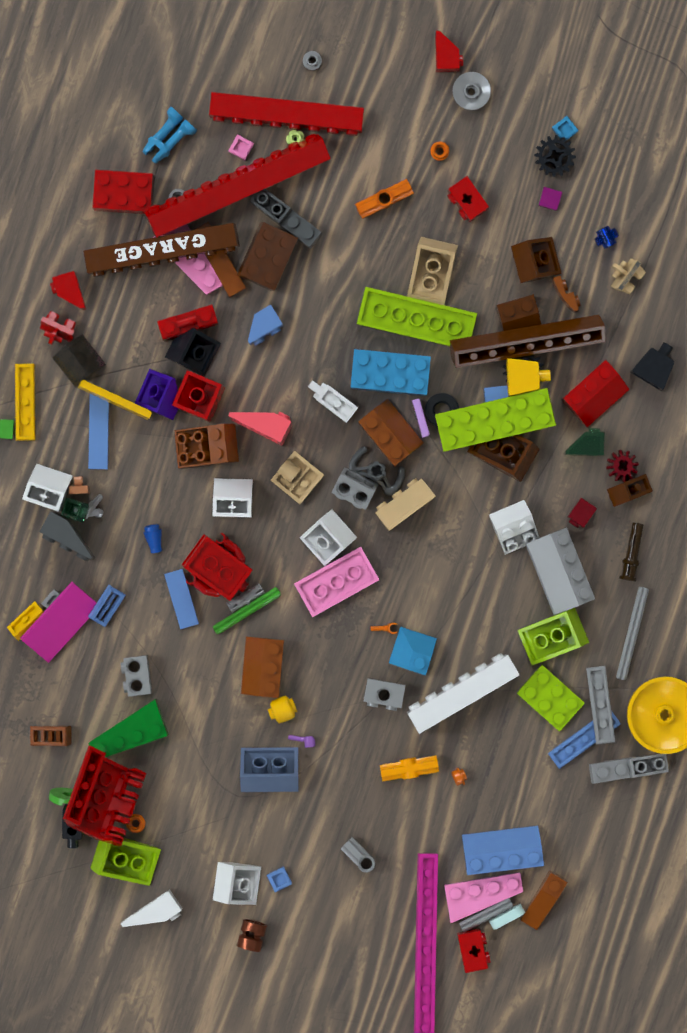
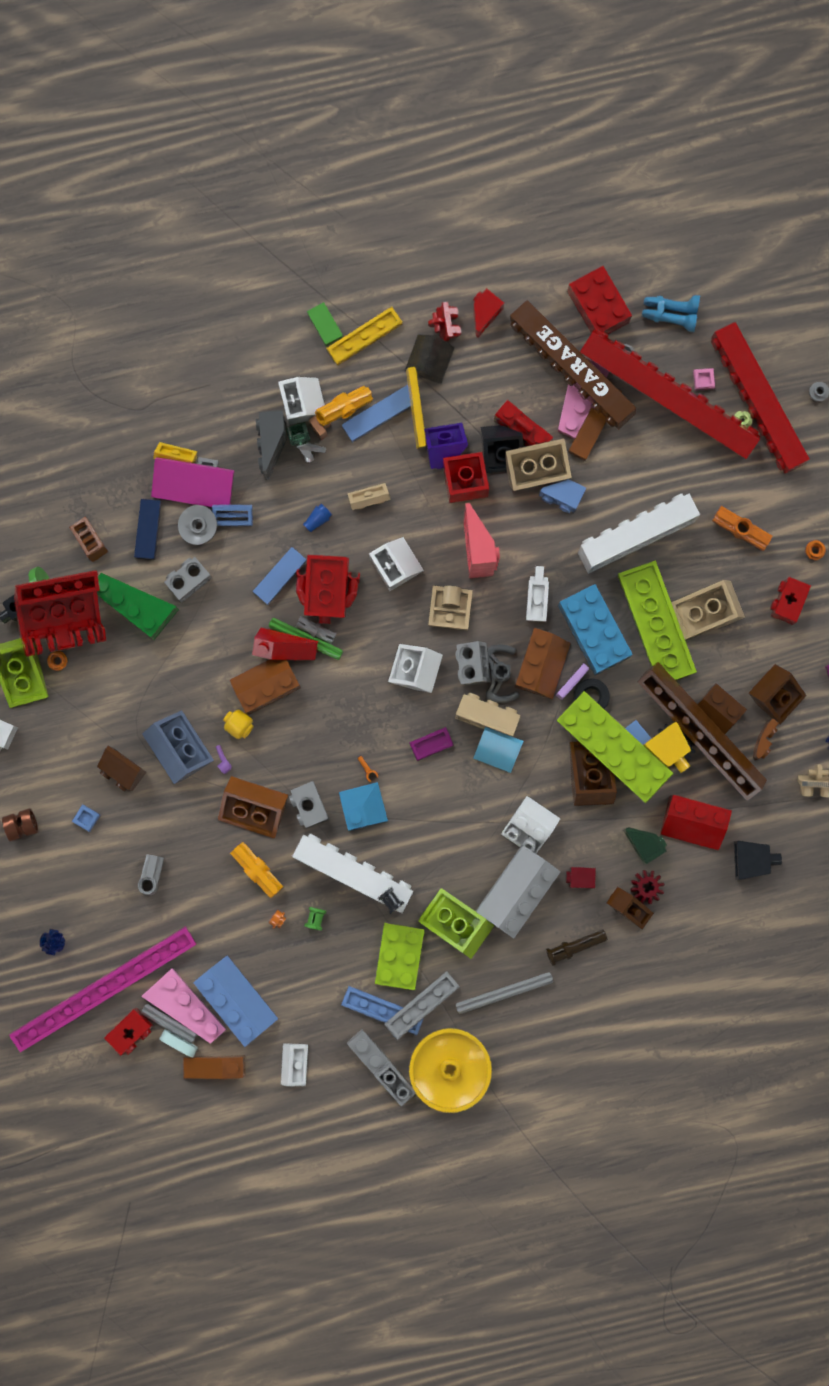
camera: 60 degrees right, 5 degrees down
(73, 682) = (147, 529): none -> dark blue tile
(75, 457) = (343, 405): none -> light orange piece
(93, 648) = (190, 518): none -> light grey dish
(163, 485) = (368, 496): none -> tan plate
(206, 445) = (427, 512): dark orange slope -> none
(227, 332) = (537, 464): none -> tan slope
(236, 883) = (58, 782): white slope -> none
(241, 634) = (283, 646): none -> red slope
(258, 826) = (120, 768): none -> reddish brown slope
(267, 256) = (625, 458): reddish brown brick -> none
(286, 217) = (669, 454): dark grey slope -> none
(335, 286) = (638, 533): none -> white brick
(336, 581) = (381, 700): bright pink plate -> none
(356, 739) = (252, 807): none -> dark orange slope
(362, 967) = (52, 942): none -> clear blue gear
(397, 563) = (431, 744): none -> magenta tile
(437, 514) = (498, 749): none -> medium azure slope
(478, 746) = (315, 918): none -> bright green bush
(504, 677) = (390, 900): none -> black bush
(582, 835) = (294, 1064): none -> white slope

